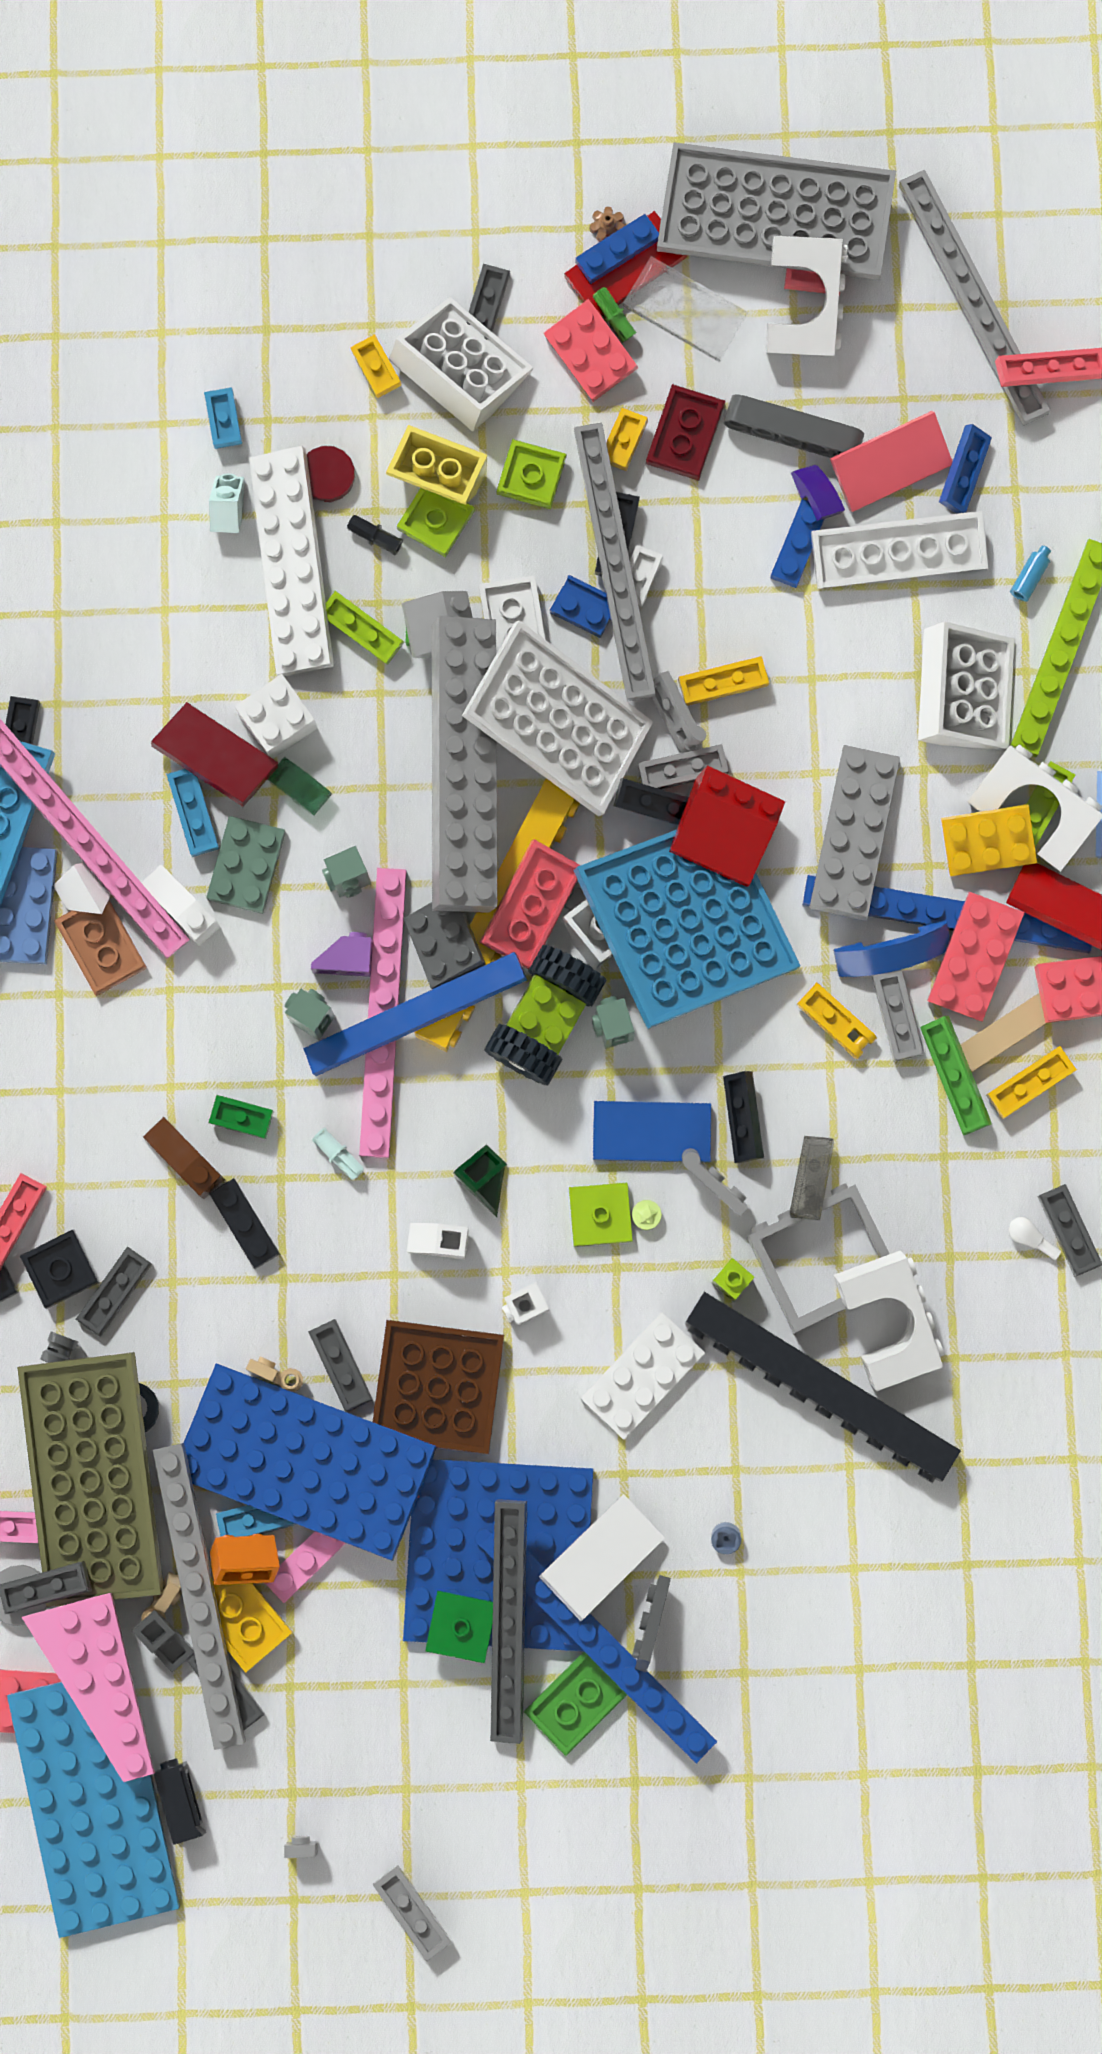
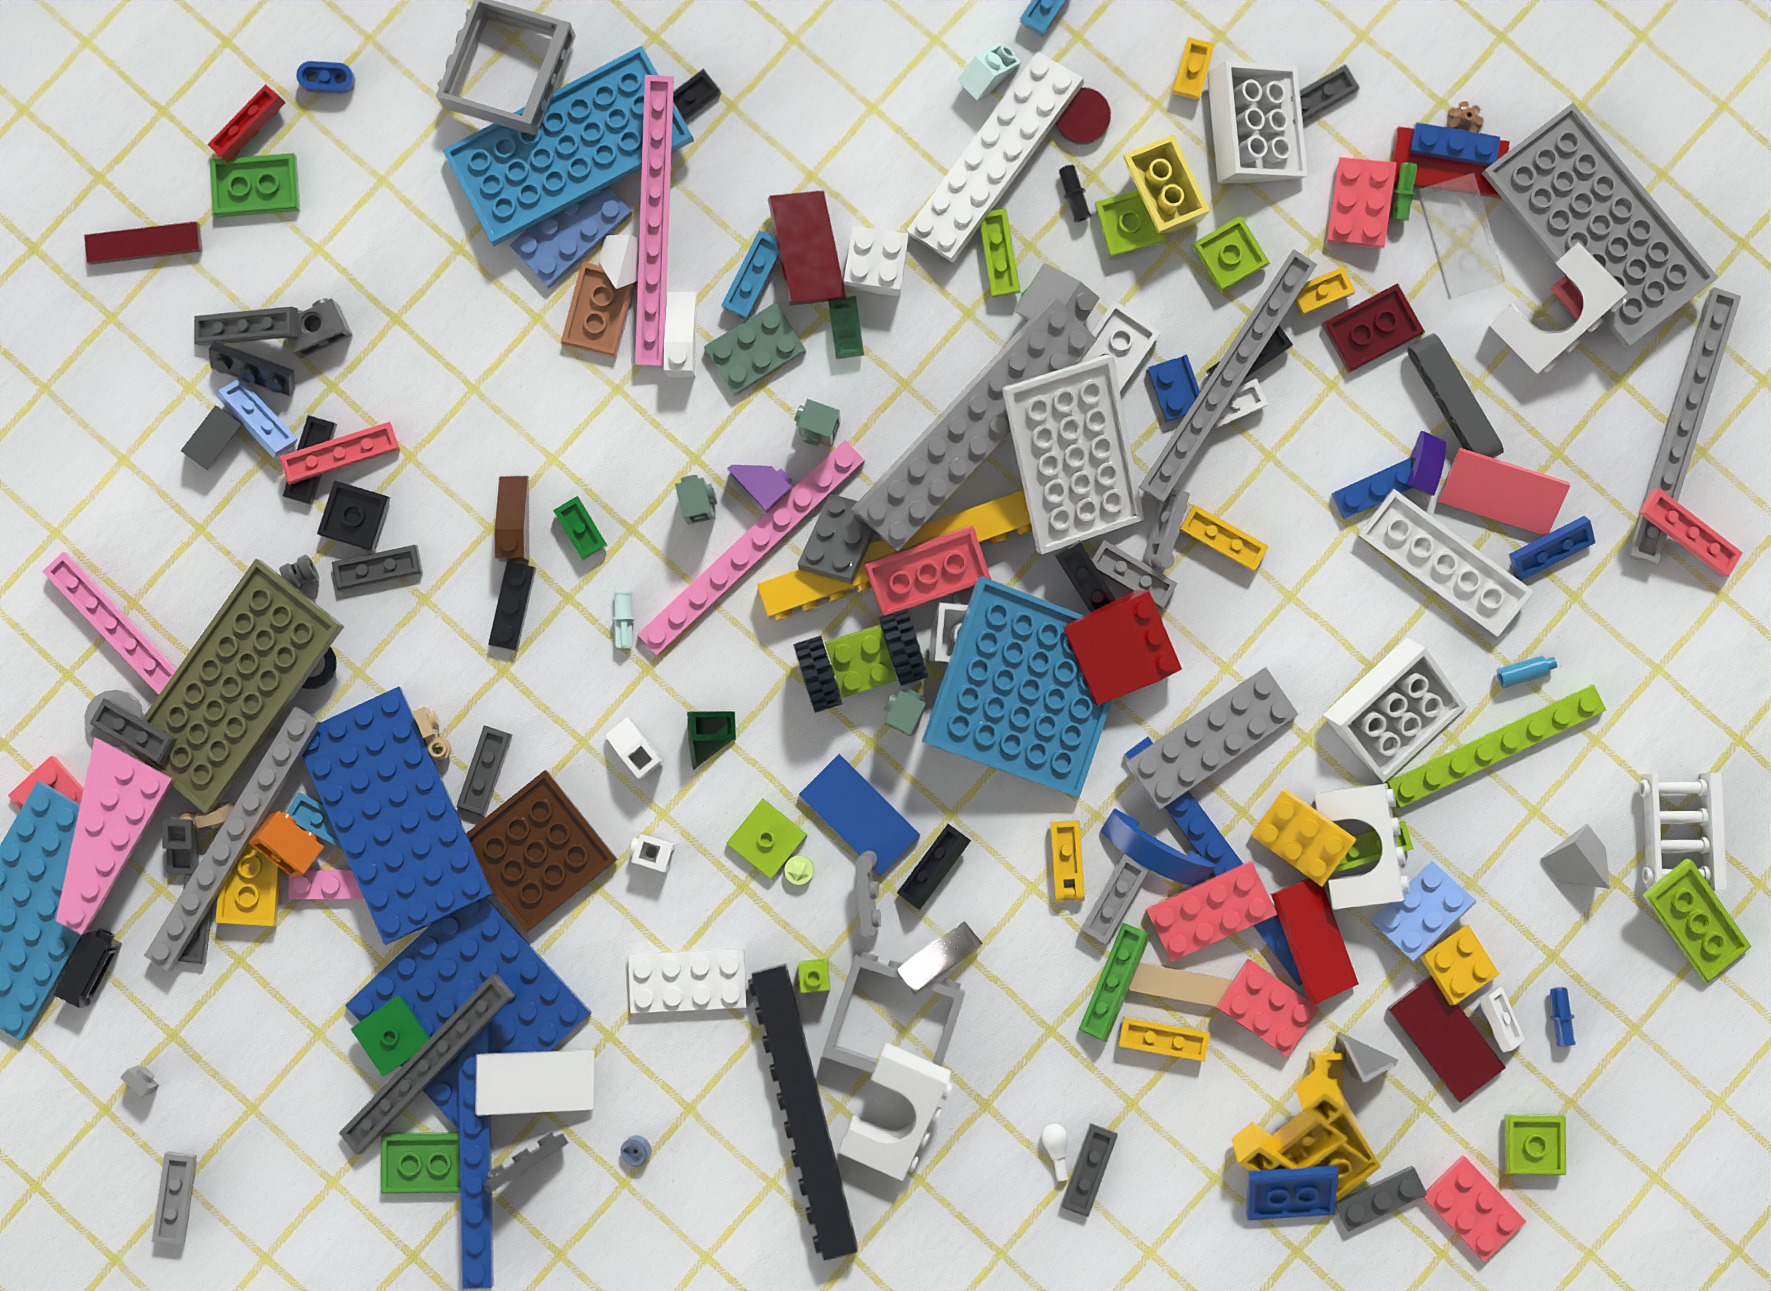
camera: 40 degrees right, 5 degrees up
(415, 1014) = (770, 572): blue tile -> none

